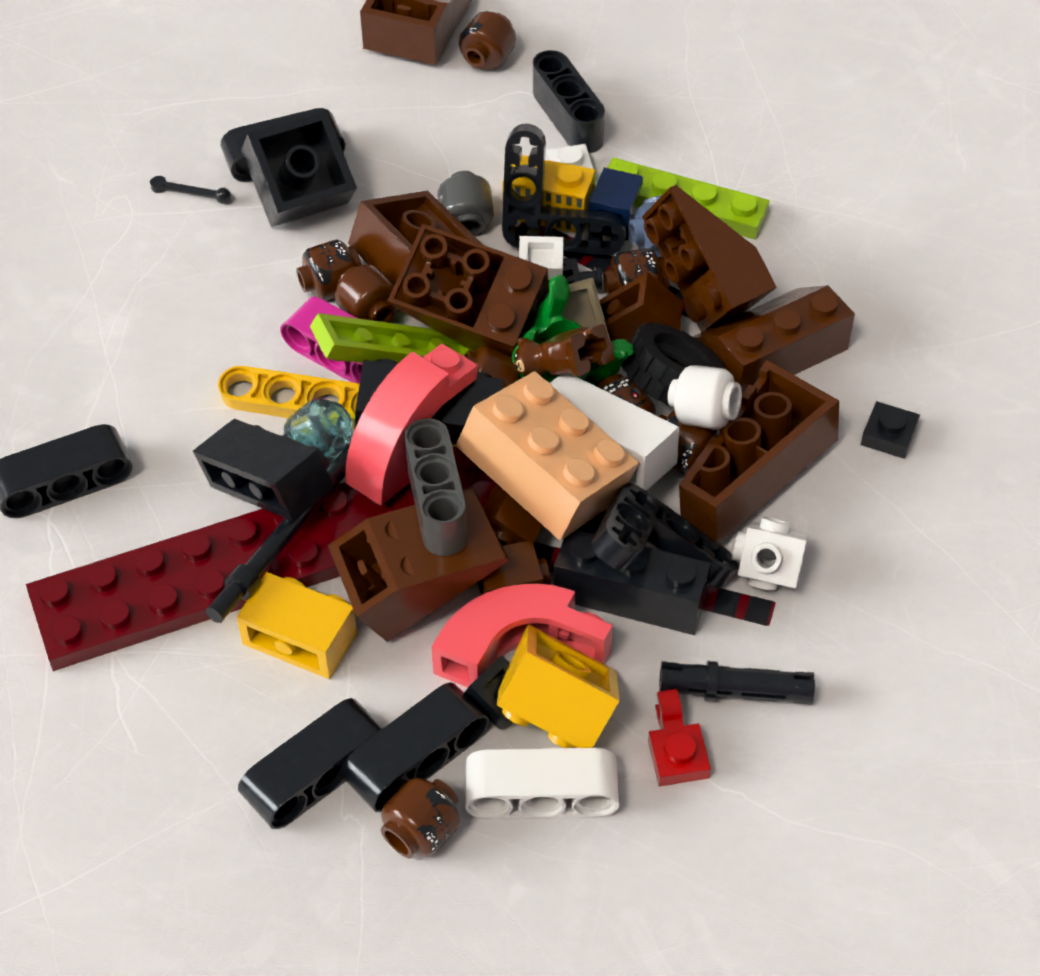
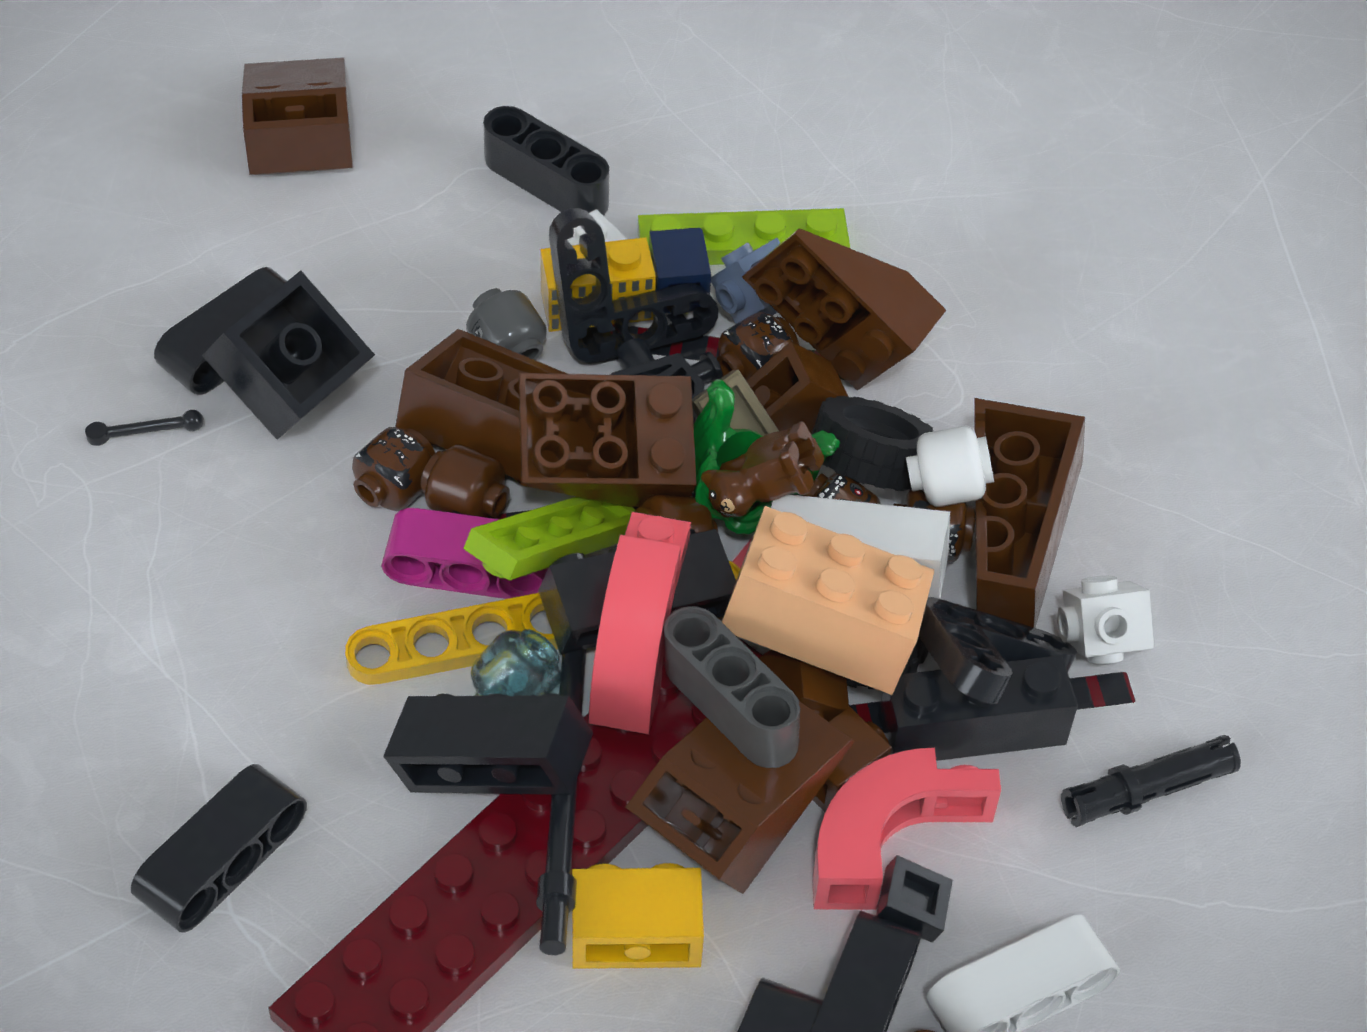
camera: 30 degrees left, 0 degrees up
(487, 40) = (404, 115): reddish brown head -> none
(544, 252) = (647, 357): white plate -> none
(558, 690) = (985, 869): yellow slope -> none
(676, 749) = (1130, 881): red plate -> none
(788, 331) = (957, 361): reddish brown slope -> none
(890, 429) = (1127, 429): black plate -> none

